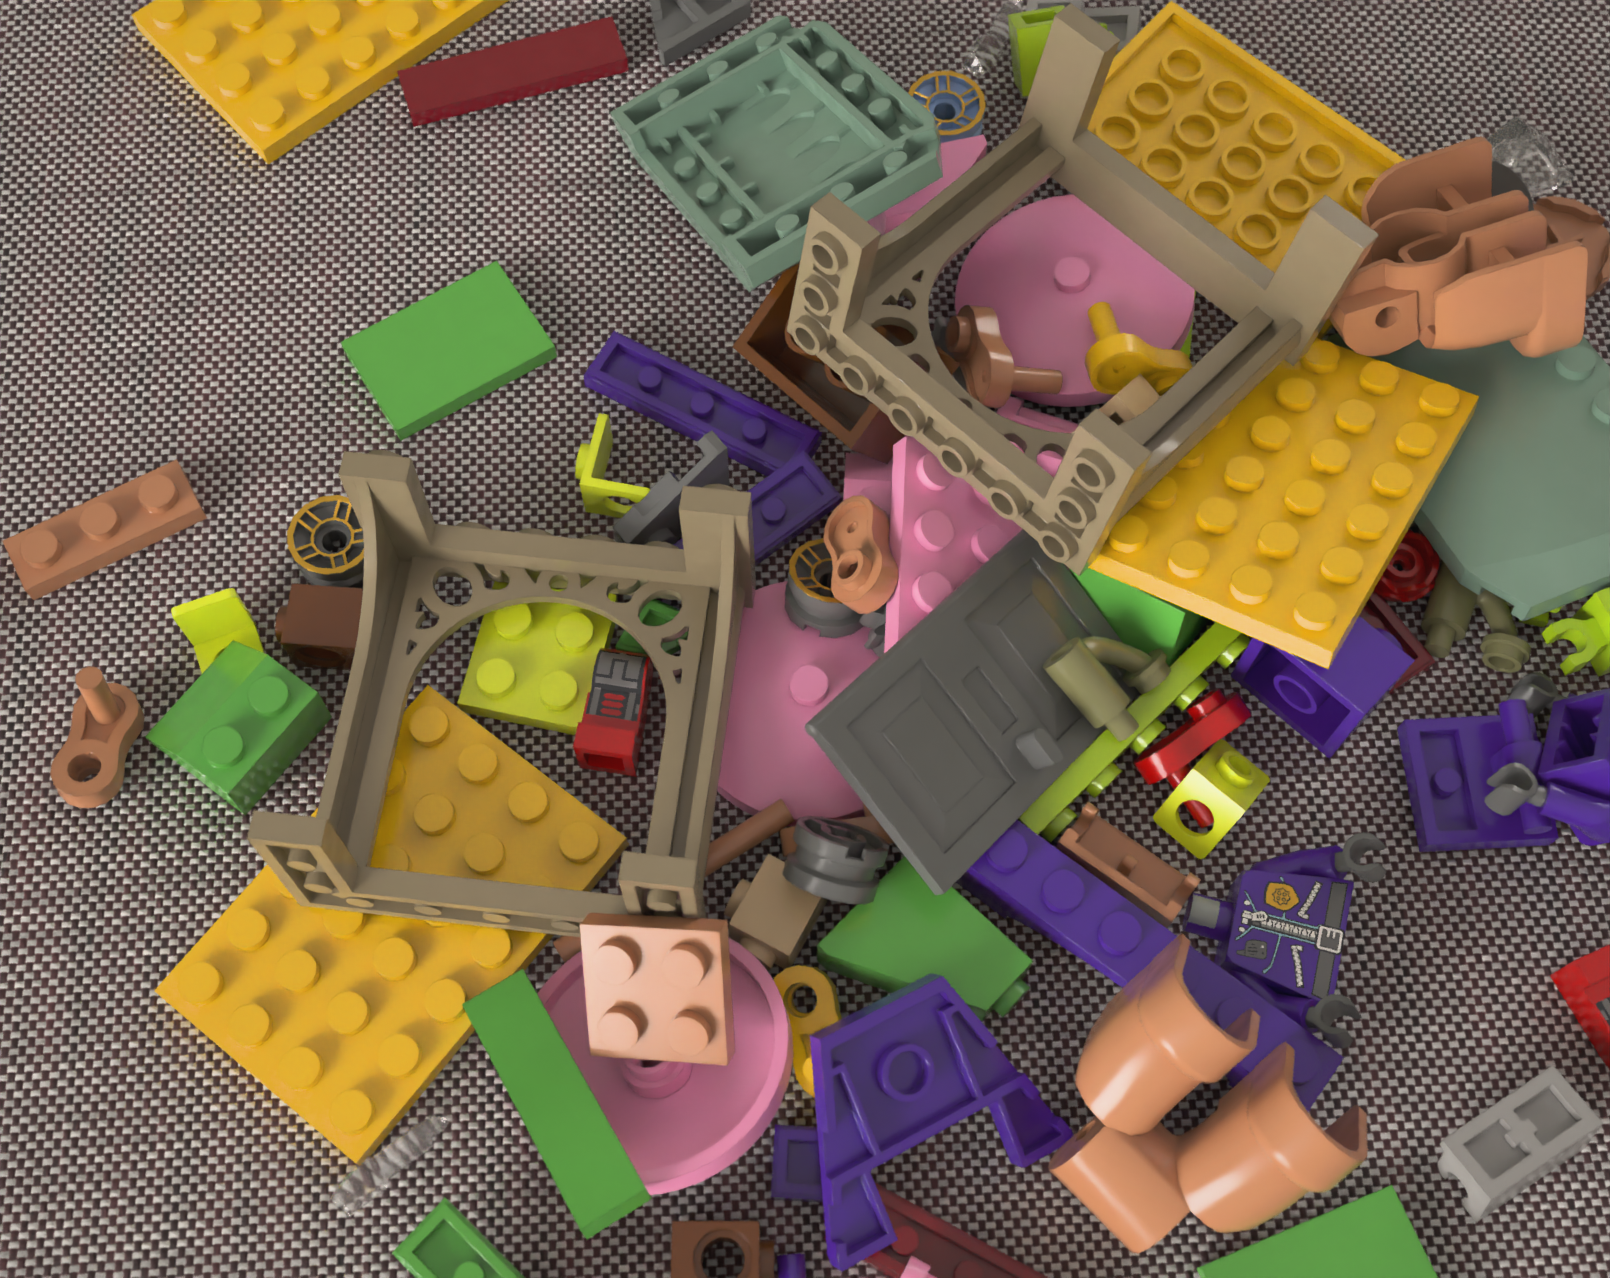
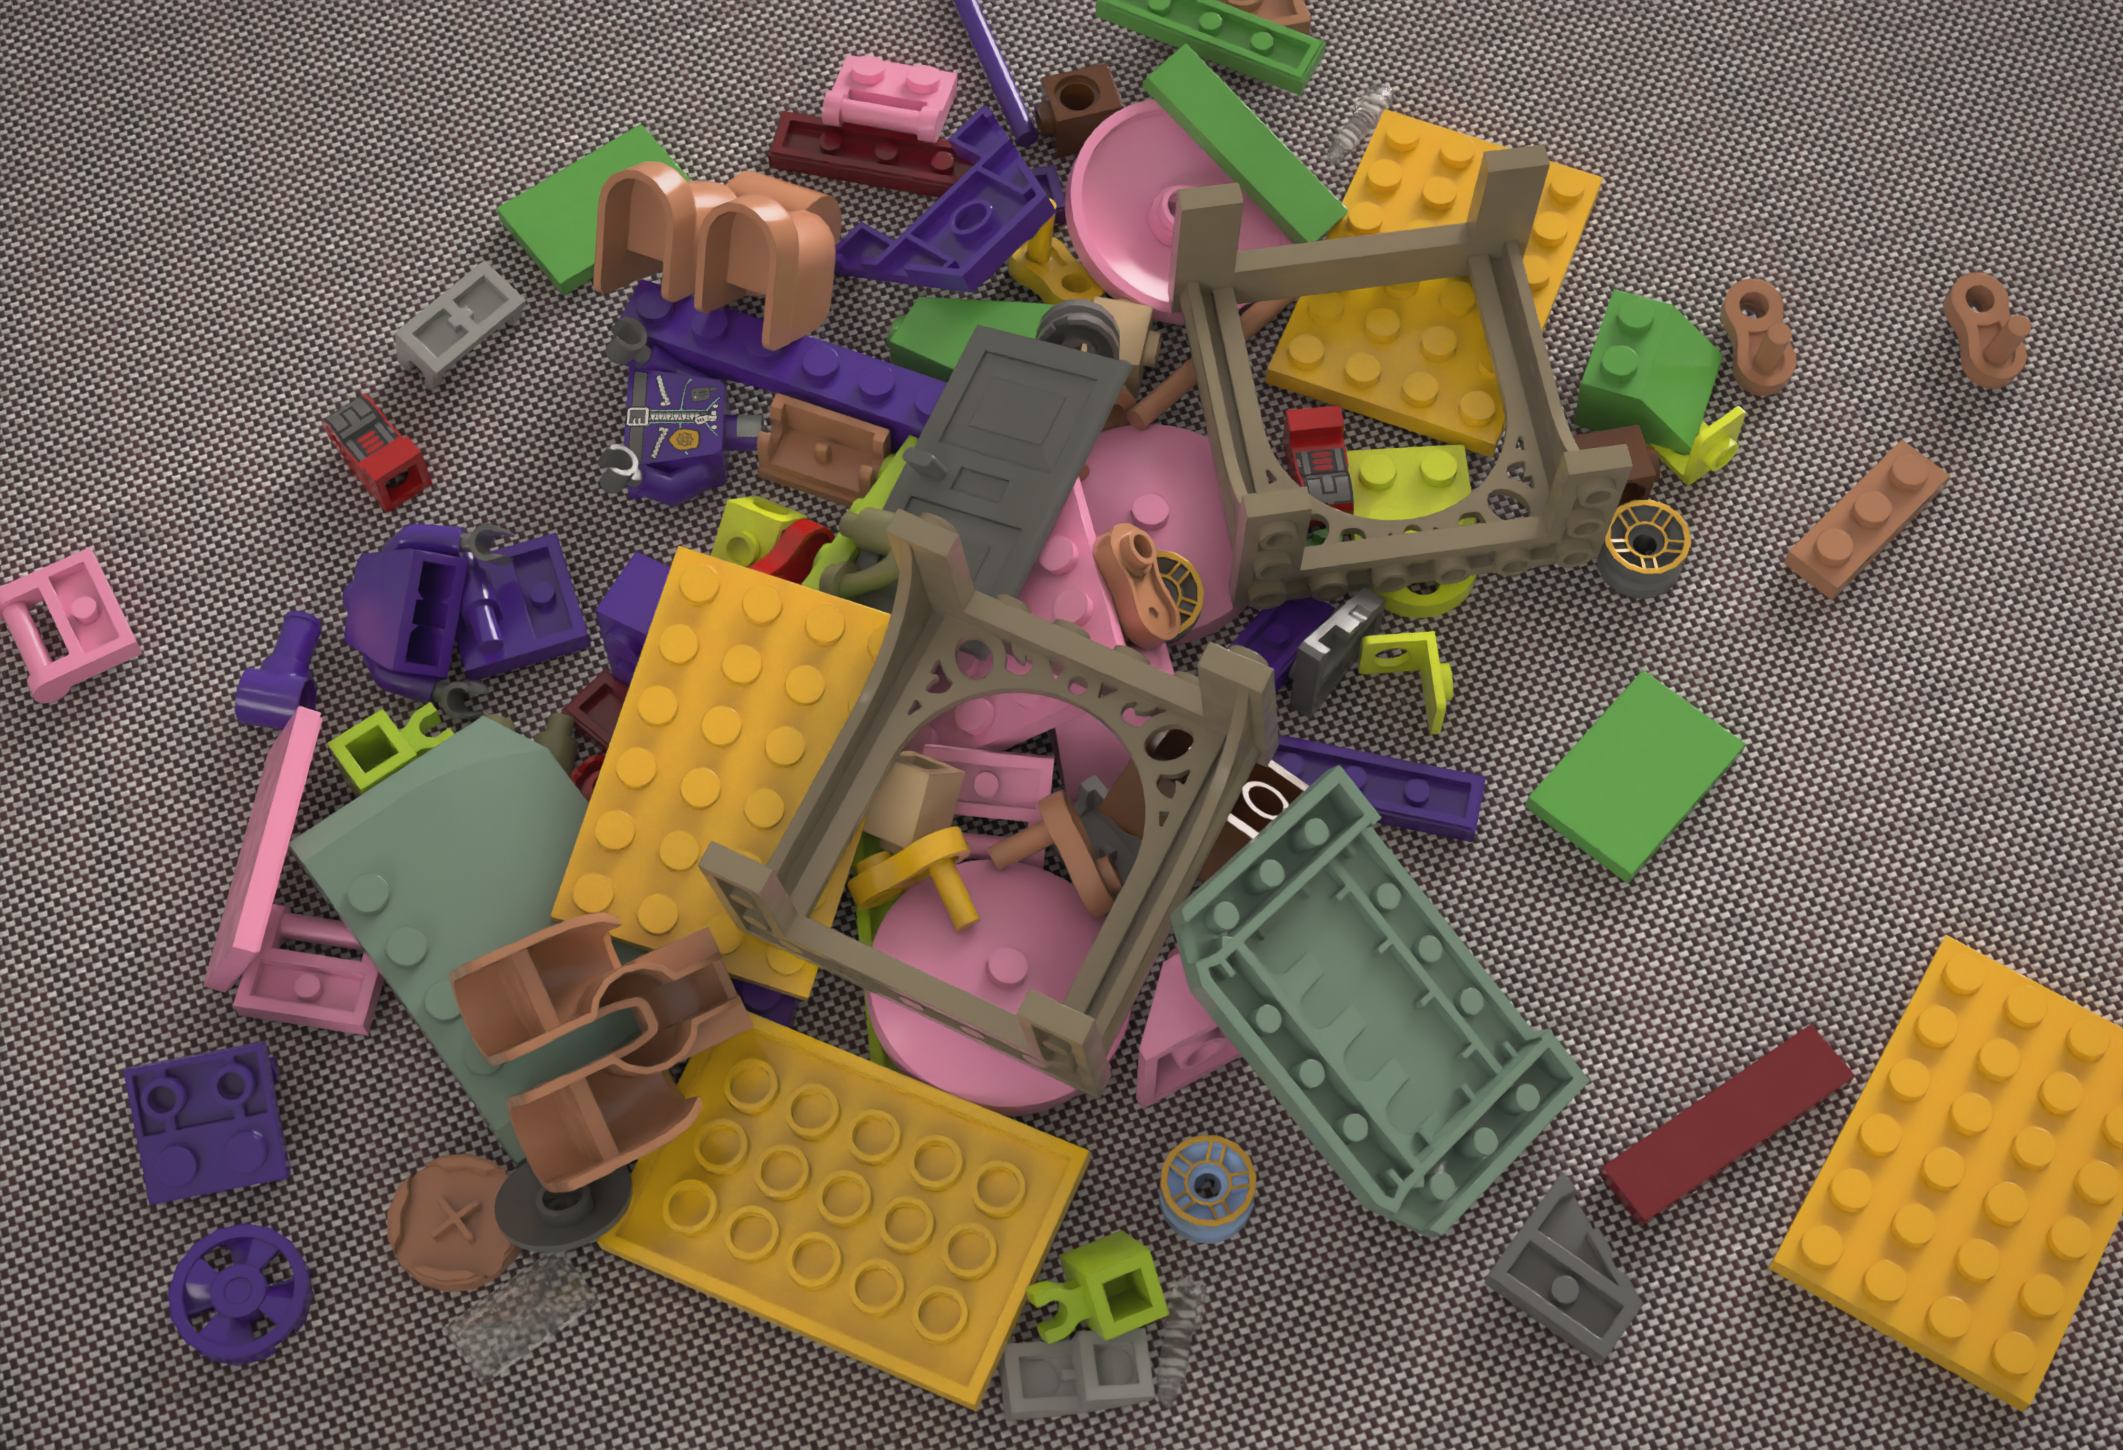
camera: 165 degrees right, 5 degrees down
(658, 988) = (1152, 205): plate -> none

